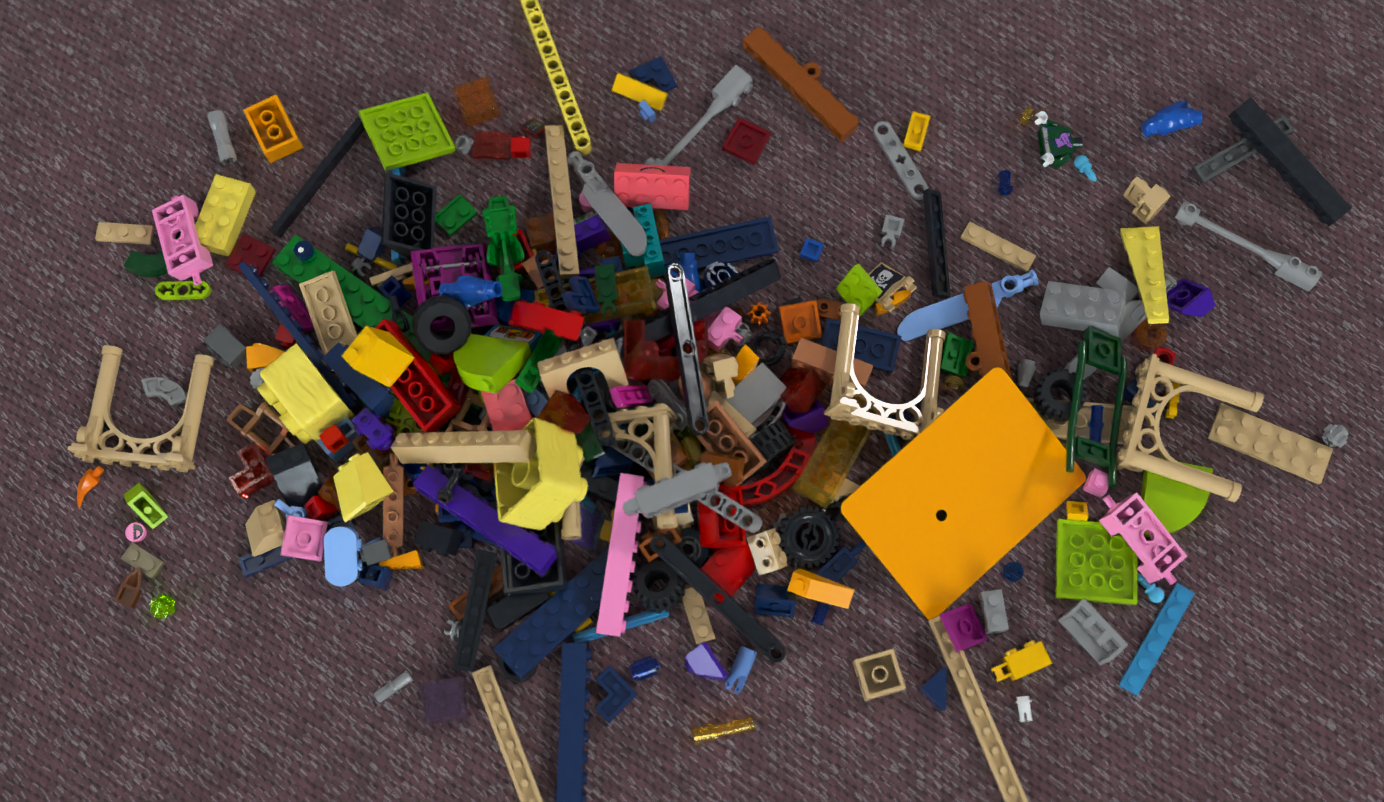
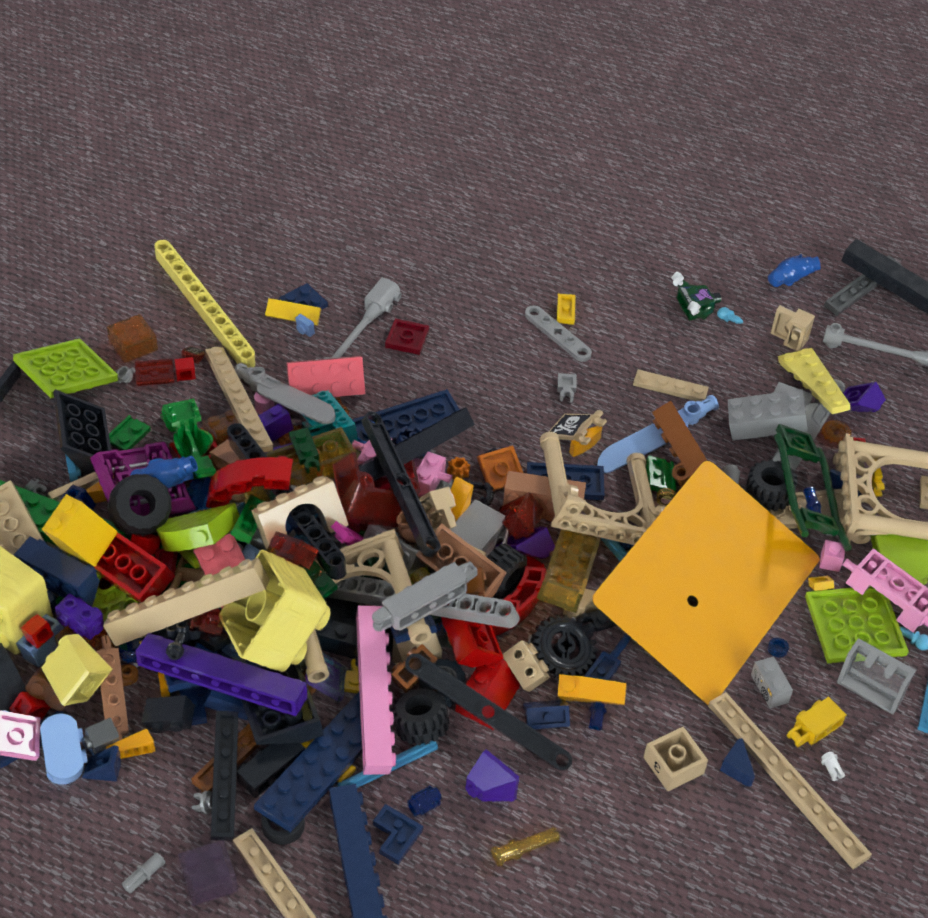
camera: 20 degrees left, 25 degrees down
(371, 244) = (46, 466): dark blue slope -> none
(384, 263) = (44, 481): yellow bar -> none
(582, 297) = (277, 449): dark blue plate -> none
(612, 464) = (344, 606): dark blue slope -> none
(697, 615) = (465, 738): tan plate -> none
(741, 668) = (529, 781): medium blue piece -> none
(800, 84) = (447, 286): dark orange hinge -> none
(811, 250) = (495, 412): blue plate -> none
(832, 310) = (530, 455): dark orange plate -> none
(859, 289) = (551, 422): lime plate -> none
(936, 244) = (613, 390): black plate -> none
(963, 627) = (746, 700): magenta plate -> none
(1005, 183) = (661, 339): clear blue pin -> none
(1027, 115) = (663, 284): clear yellow tile -> none

